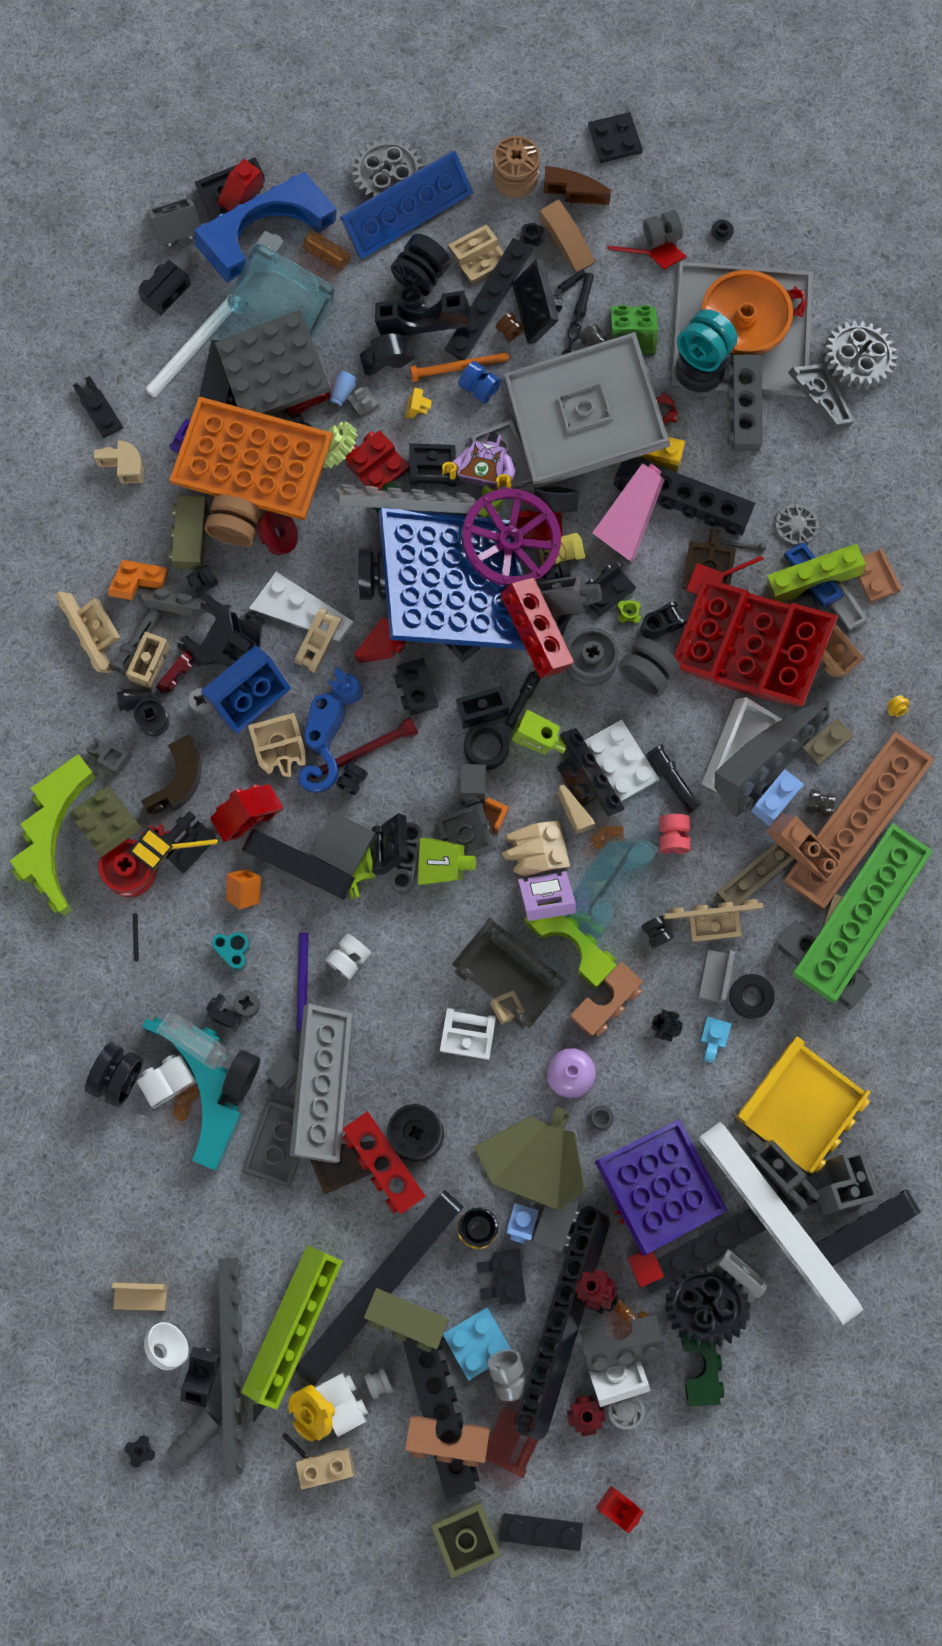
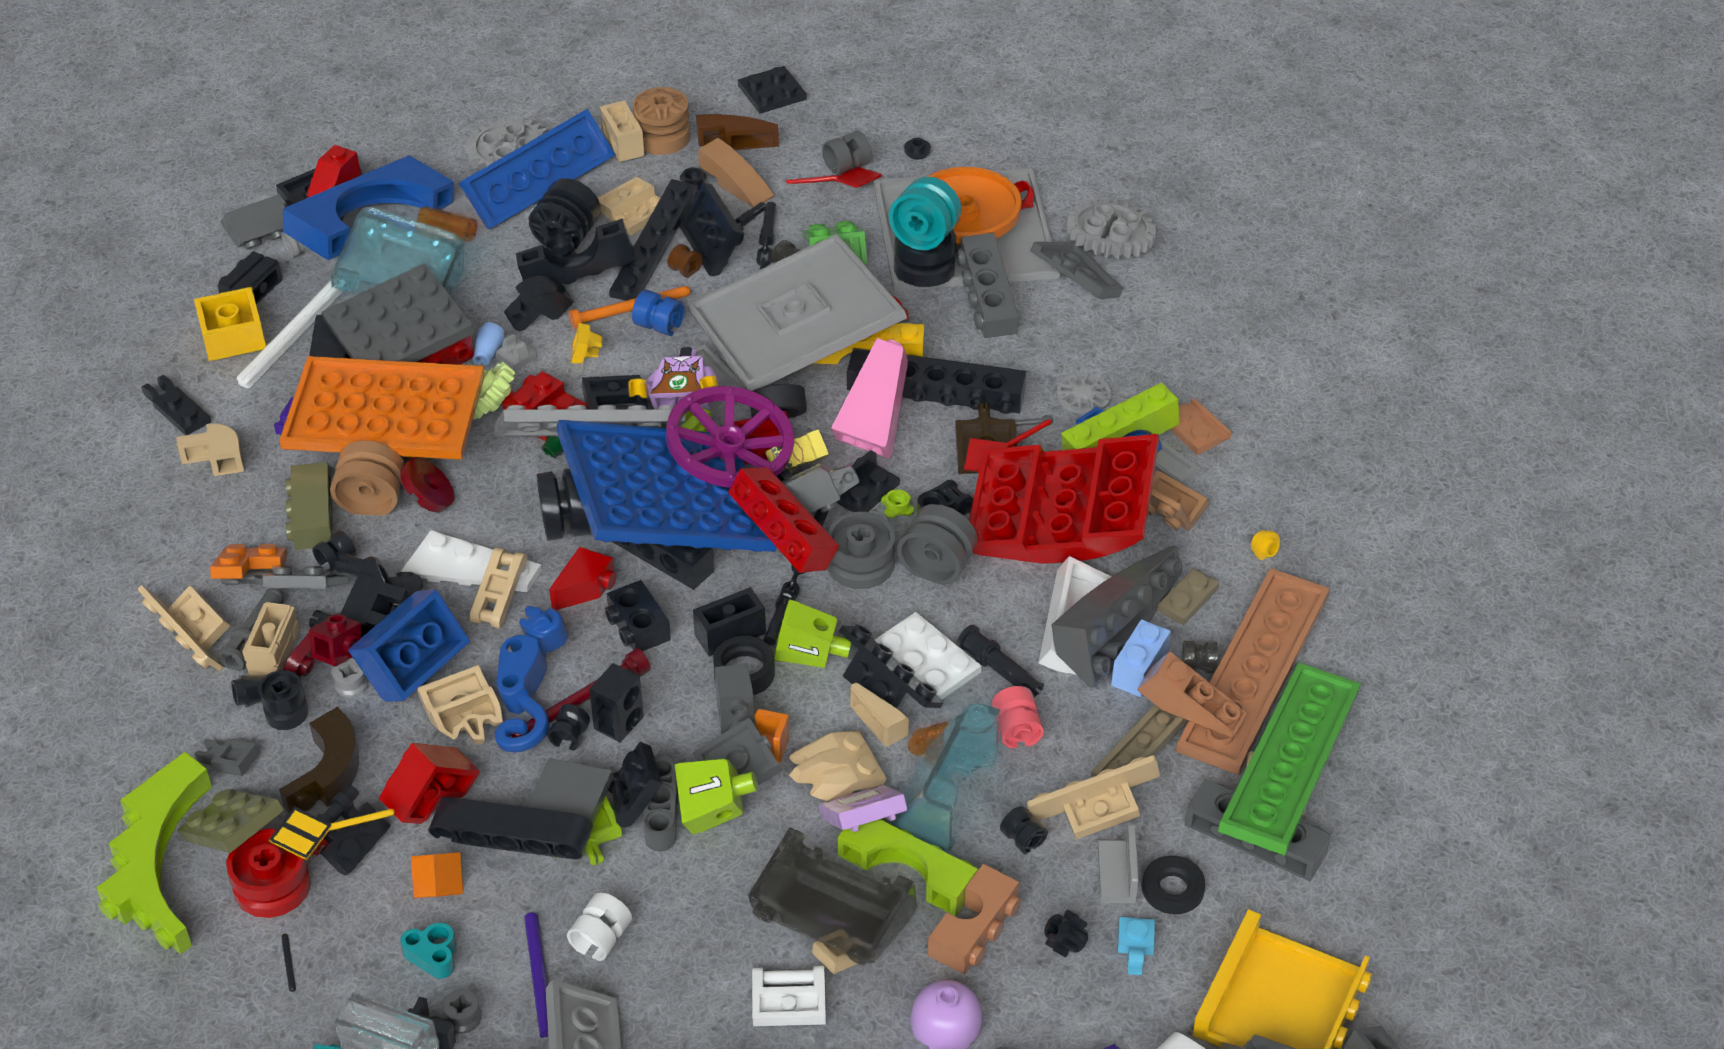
camera: 10 degrees left, 30 degrees down
(144, 334) = (230, 324): none -> yellow brick
(193, 675) = (333, 638): none -> dark red brick
(388, 769) = (616, 702): none -> black brick
(481, 172) = (622, 131): none -> tan brick

